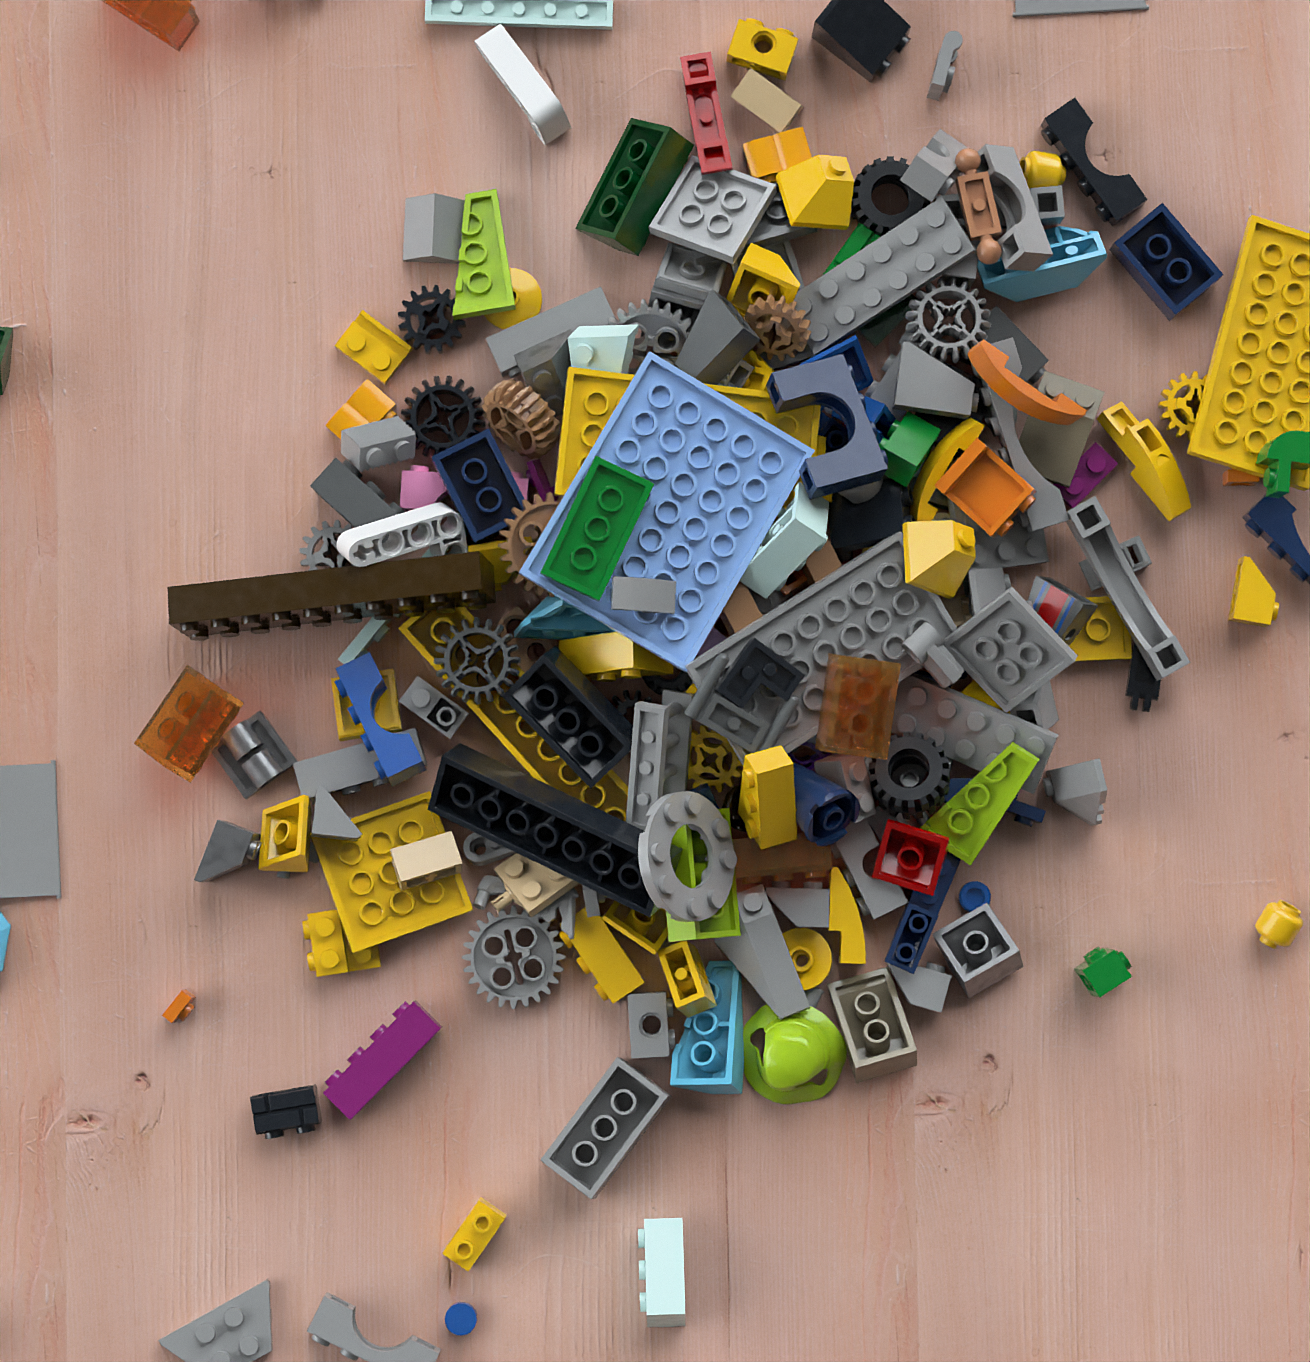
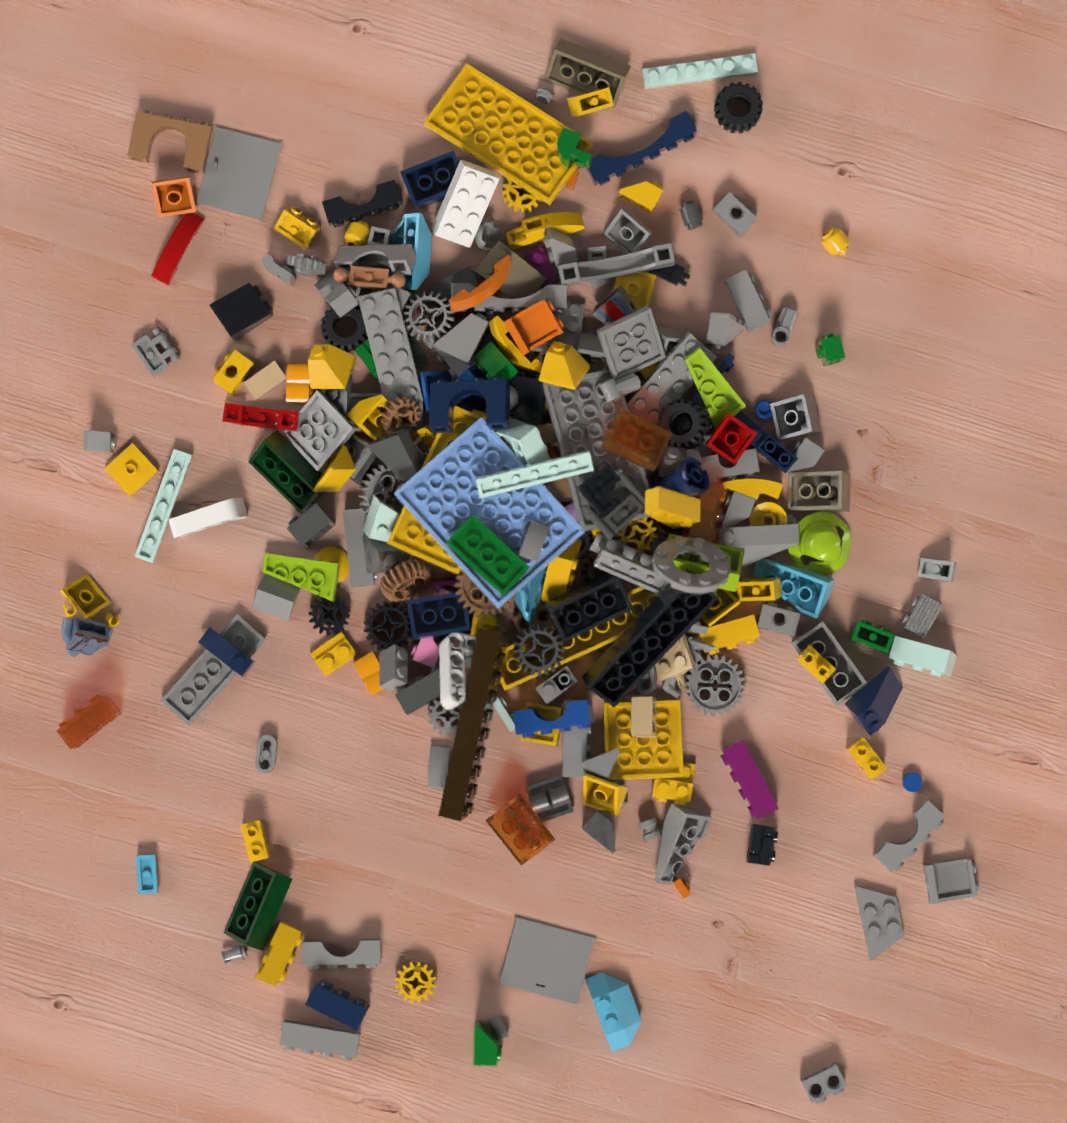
camera: 65 degrees left, 0 degrees up
(43, 319) = (255, 841): none -> yellow brick
(185, 292) = (266, 754): none -> light grey plate
(249, 563) = (438, 766): none -> light grey slope
(253, 928) = (649, 829): none -> light grey wheel
(261, 976) = (679, 834): none -> light grey wedge
(289, 169) = (209, 674): none -> light grey plate
(320, 179) = (226, 652): none -> dark blue slope
(558, 242) = (310, 526): none -> dark grey brick
(569, 1219) = (875, 701): none -> dark blue slope
(593, 1107) = (816, 664): none -> yellow hips
(654, 257) = (336, 472): none -> yellow slope
(668, 1182) = (872, 637): none -> green brick
(728, 1250) = (921, 616): none -> light grey brick
(750, 561) = (534, 474): none -> light aqua plate
(809, 1251) = (937, 569): none -> light grey slope
(966, 104) = (305, 265): none -> light grey gear
(1023, 74) = (297, 226): none -> yellow bracket
(1106, 372) = (487, 236): none -> light grey hair
(1117, 886) = (784, 325): none -> light grey piece
(1127, 493) = (561, 248): none -> light grey slope
(1138, 815) = (748, 301): none -> light grey brick
(1146, 319) = (465, 203): none -> white brick
(1184, 591) = (627, 232): none -> light grey slope
(1245, 682) = (691, 215): none -> dark grey brick
(1254, 762) = (738, 225): none -> light grey brick

